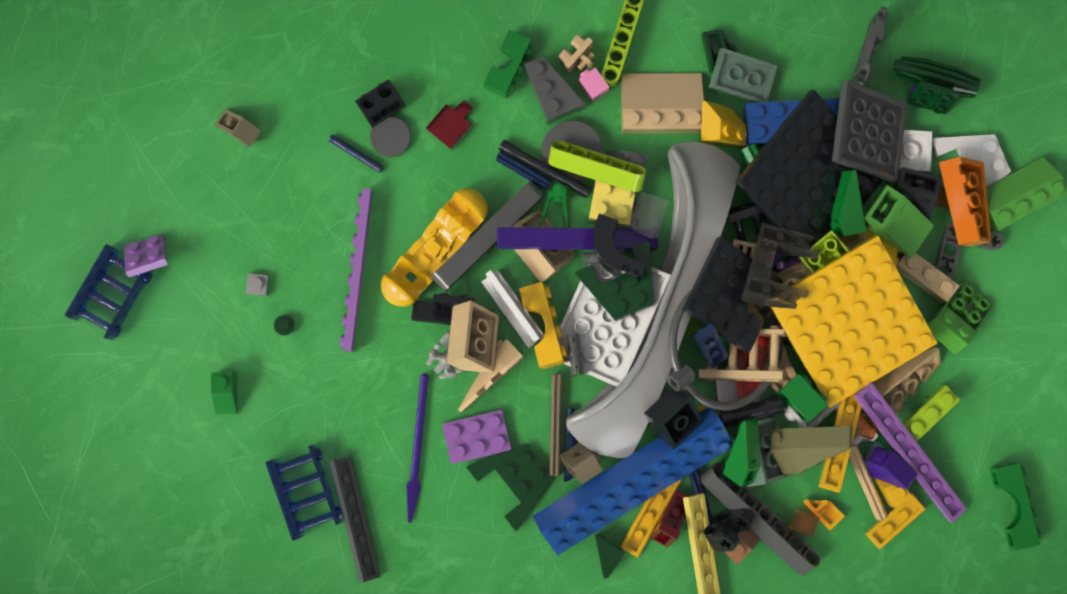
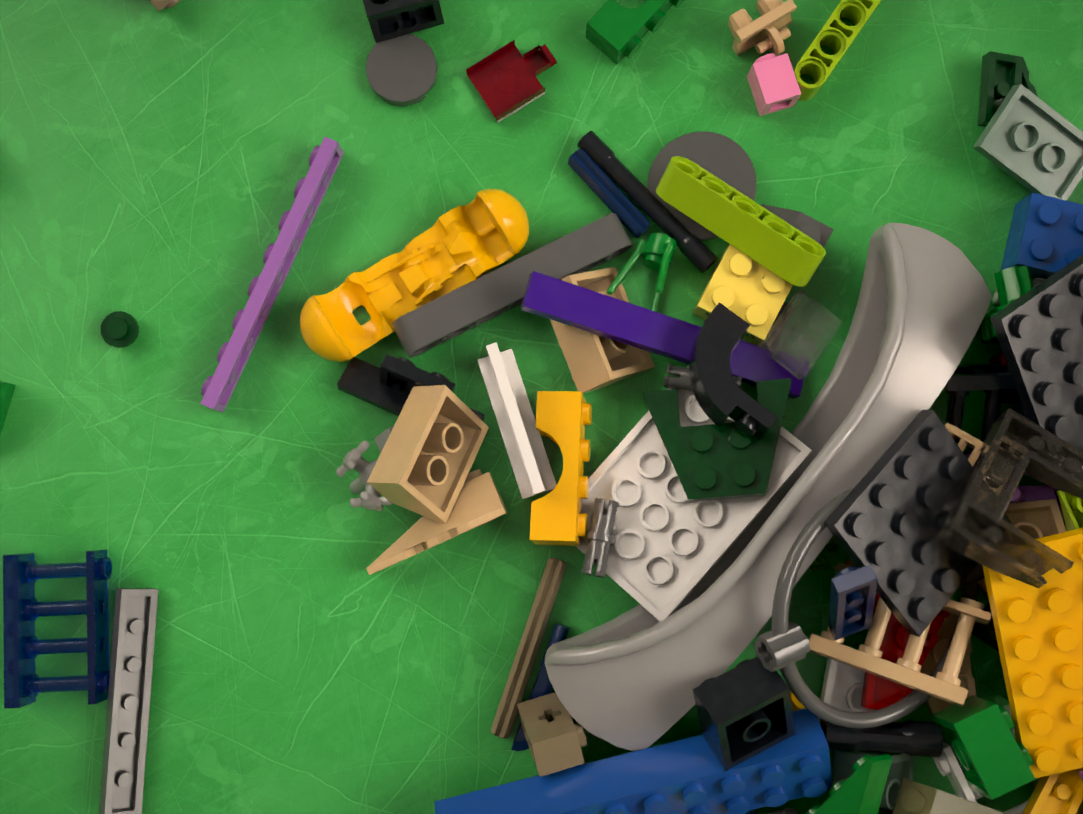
camera: 20 degrees right, 0 degrees up
(257, 284) = (98, 247): light grey plate -> none
(355, 153) = (335, 79): dark blue bar -> none
(413, 484) = (250, 673): dark purple piece -> none
(476, 436) = (385, 624): medium lavender plate -> none
(521, 473) = (443, 716): dark green wing -> none
(551, 91) = (699, 73): dark grey wedge -> none
(661, 103) = (881, 154): tan slope -> none
(722, 126) = (977, 221): yellow slope -> none

